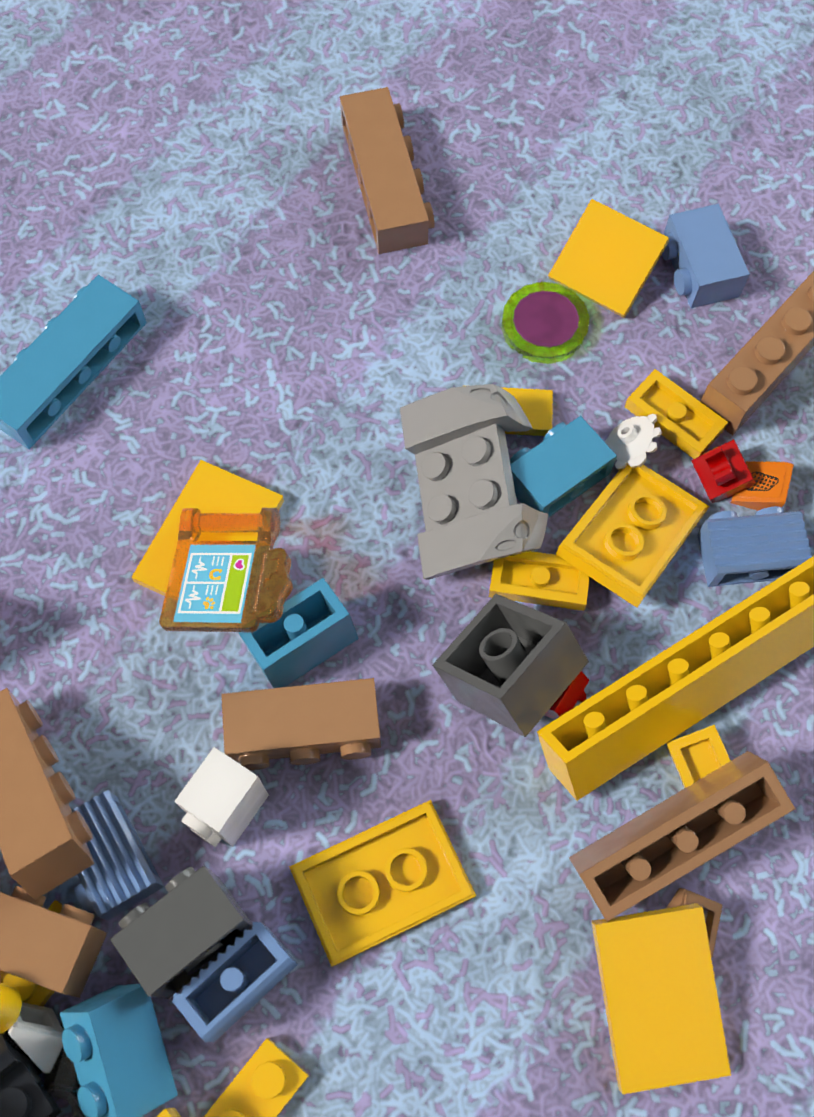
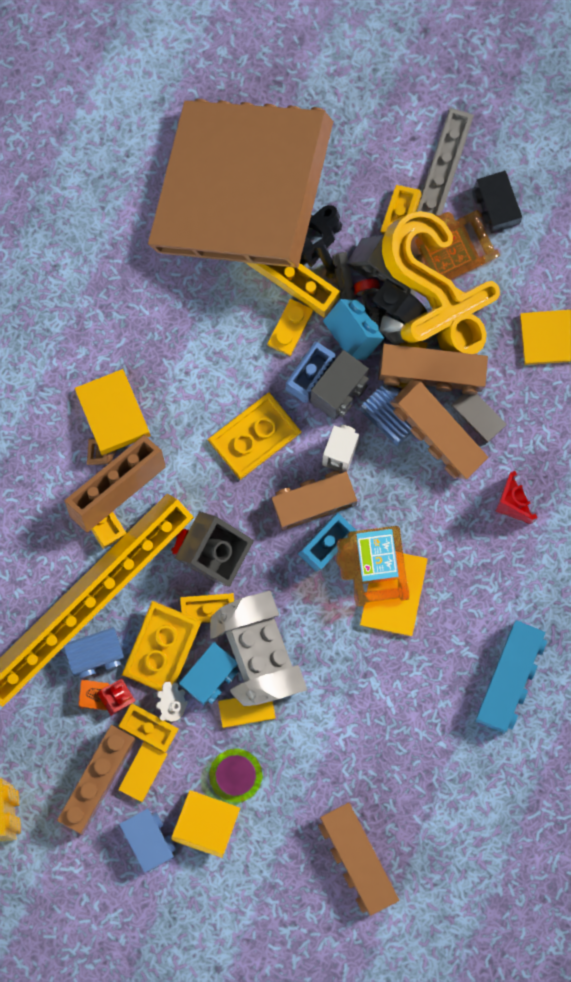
camera: 165 degrees right, 10 degrees up
(697, 353) = (143, 772): none -> yellow tile

